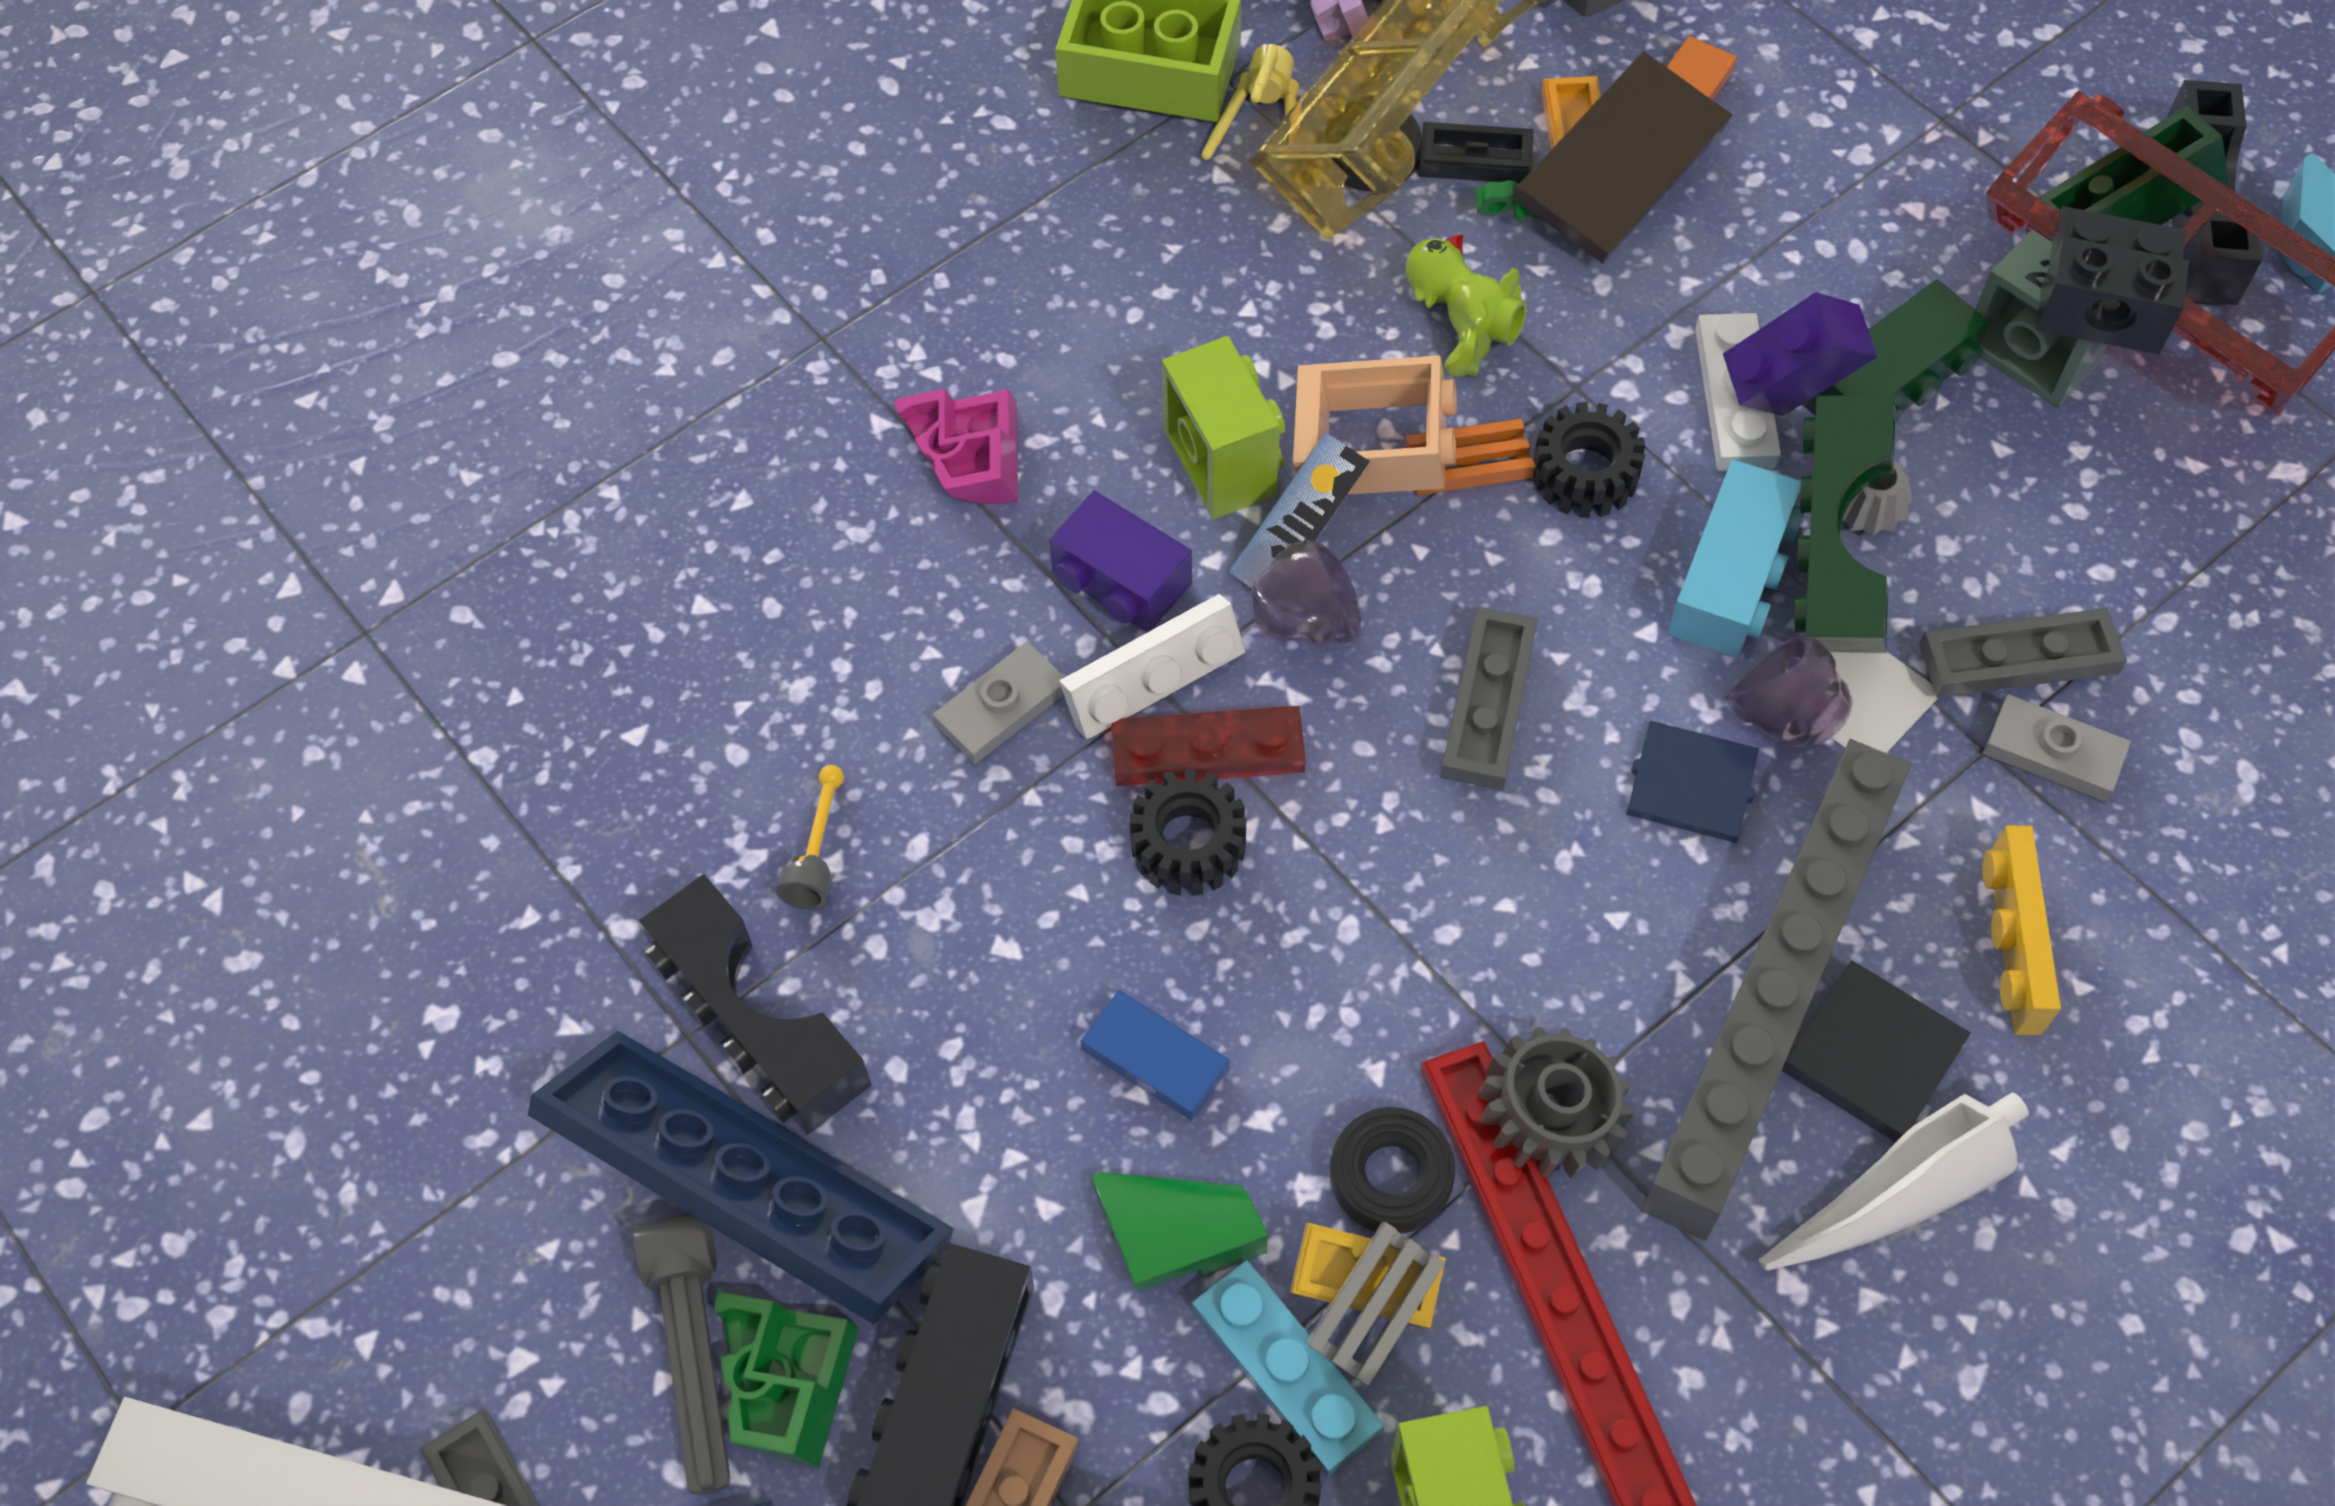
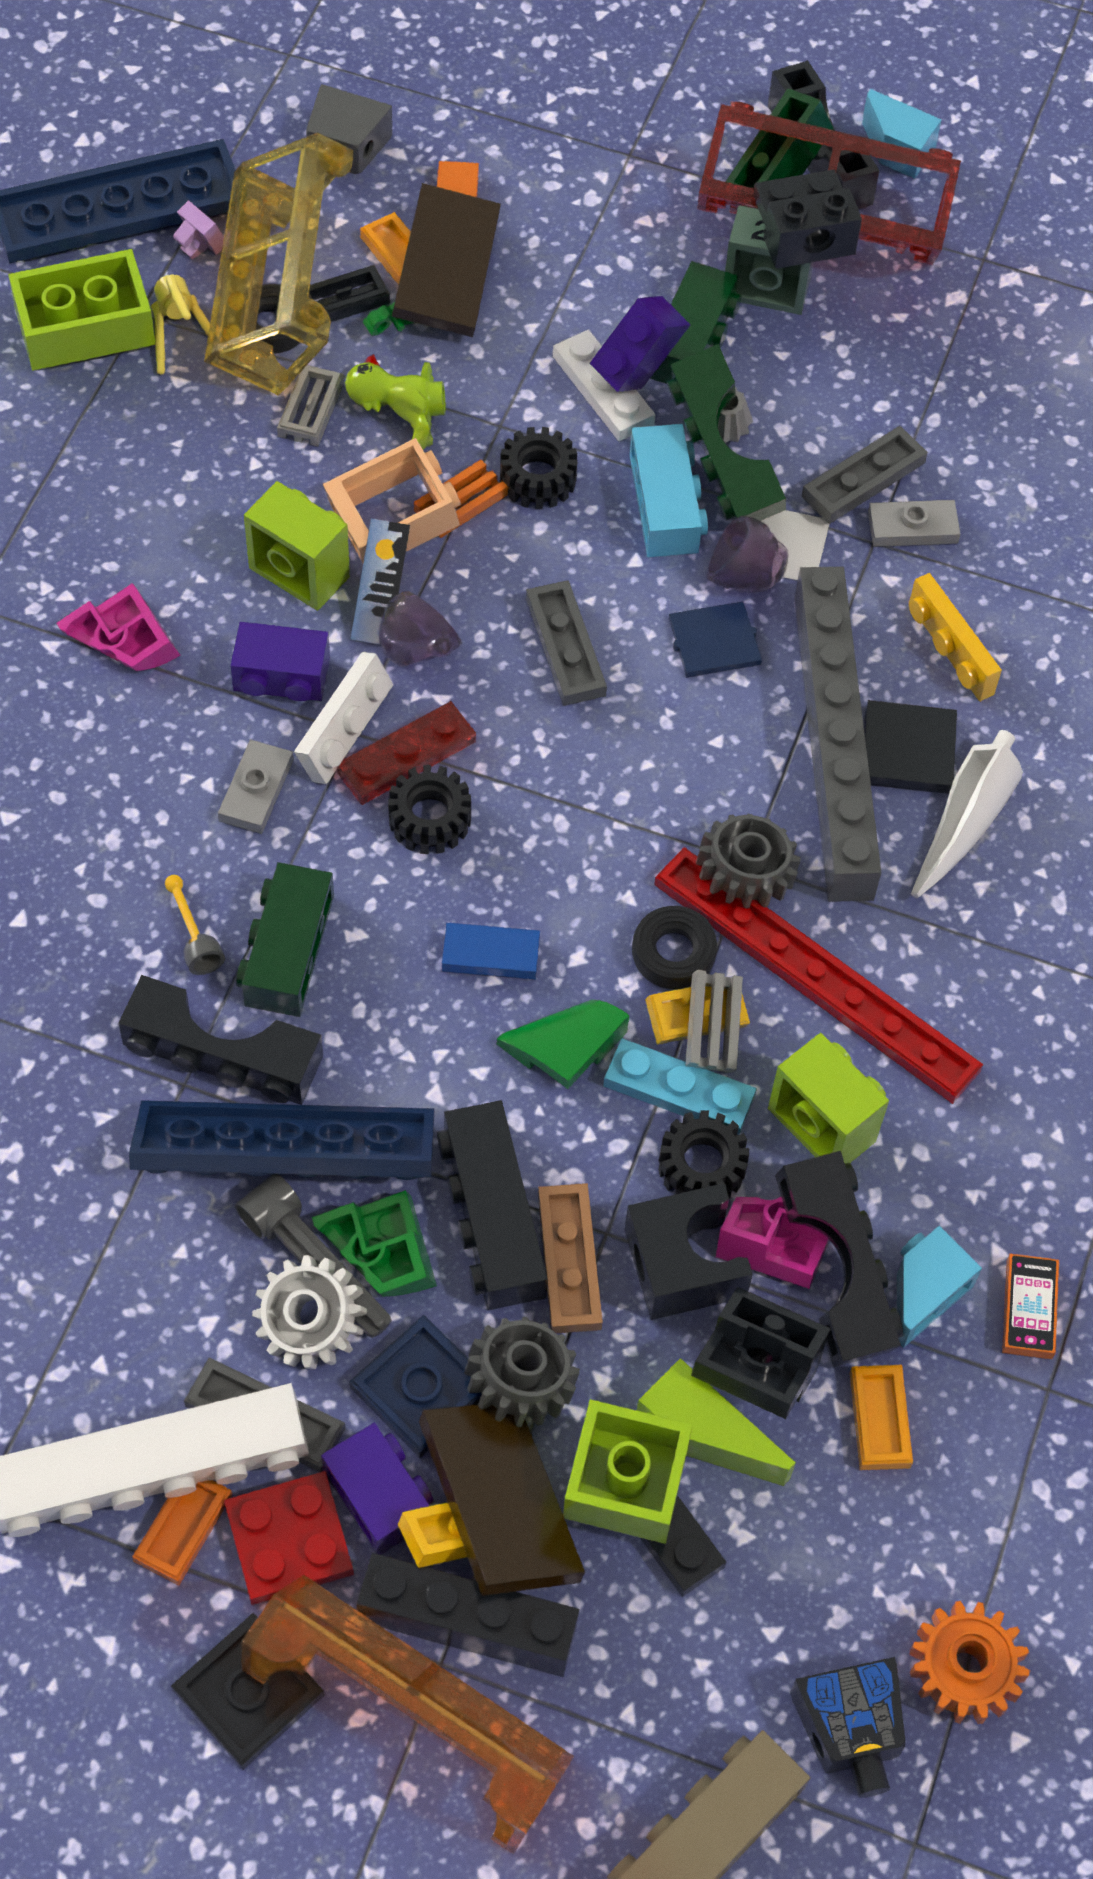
camera: 35 degrees left, 0 degrees up
(594, 1412) = (331, 1326): none -> white gear
(911, 914) = (286, 939): none -> dark green brick
(1363, 272) = (302, 429): none -> light grey tile

